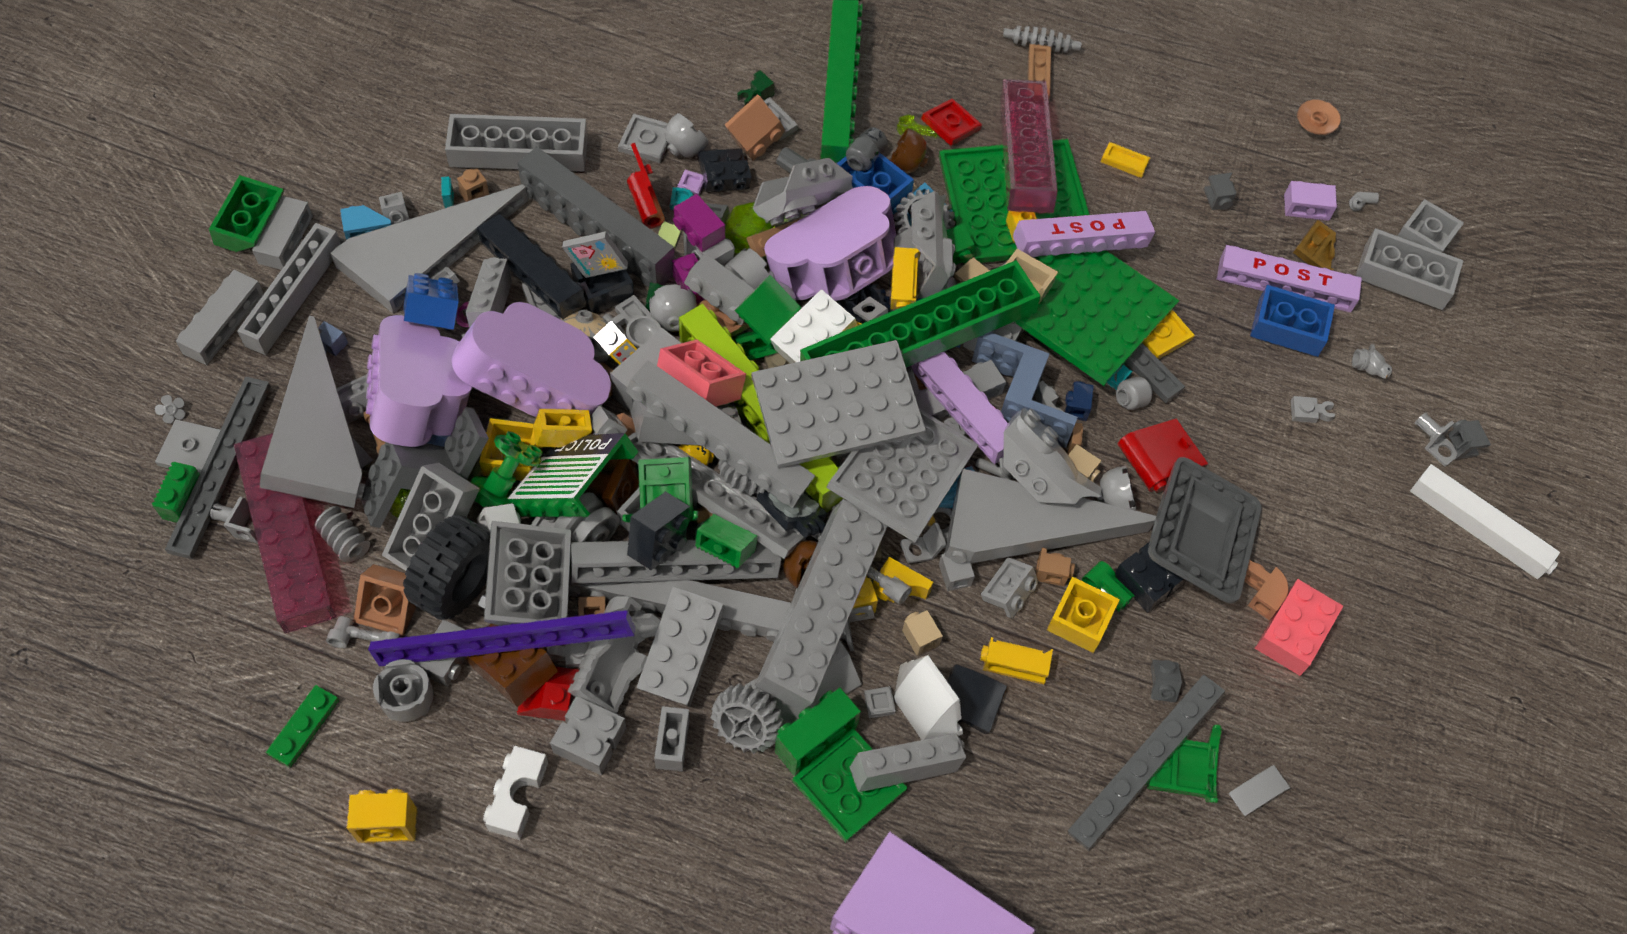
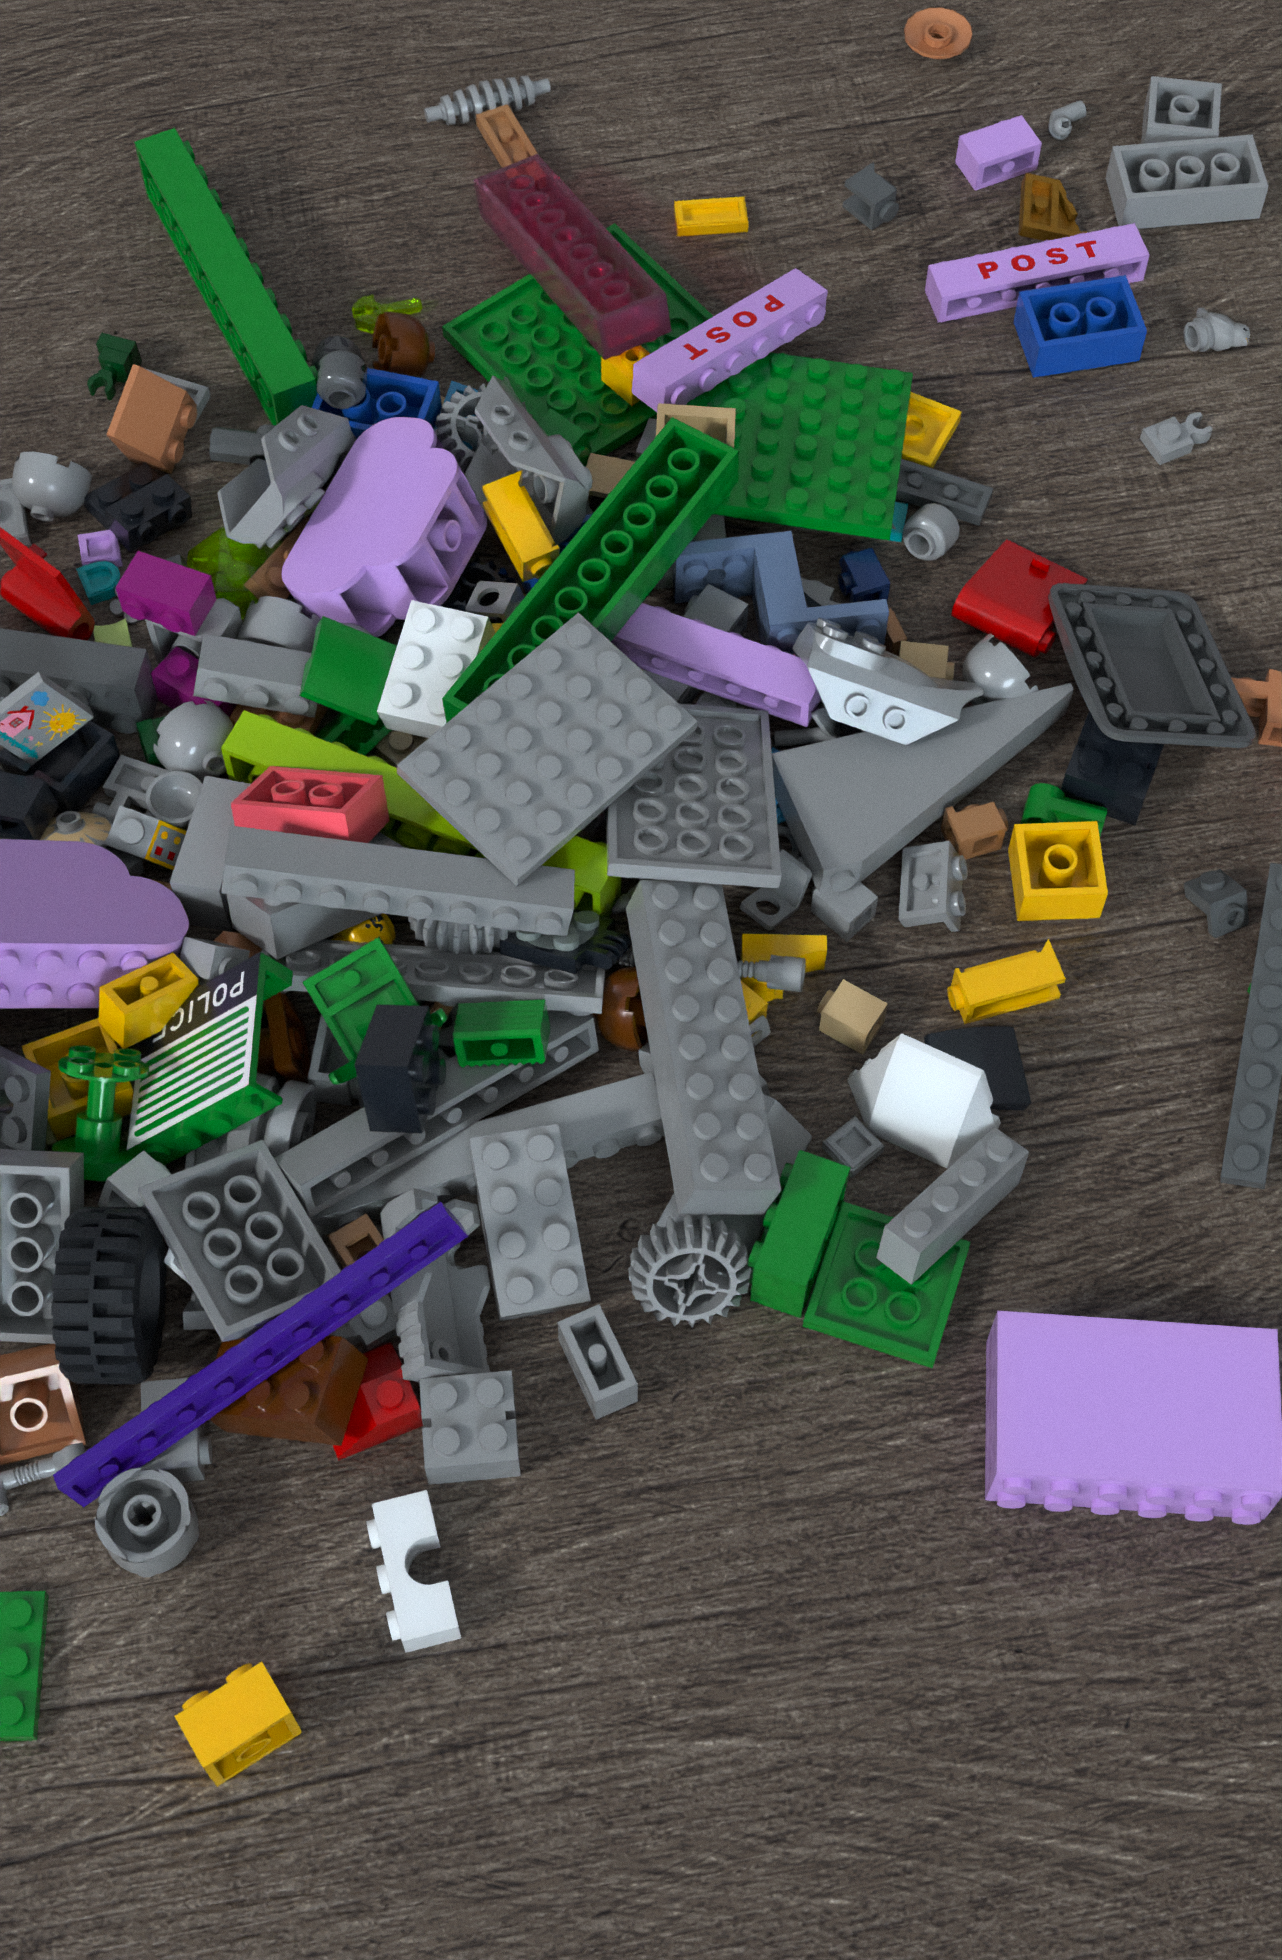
camera: 25 degrees left, 0 degrees up
(951, 122) = (432, 278): red tile -> none

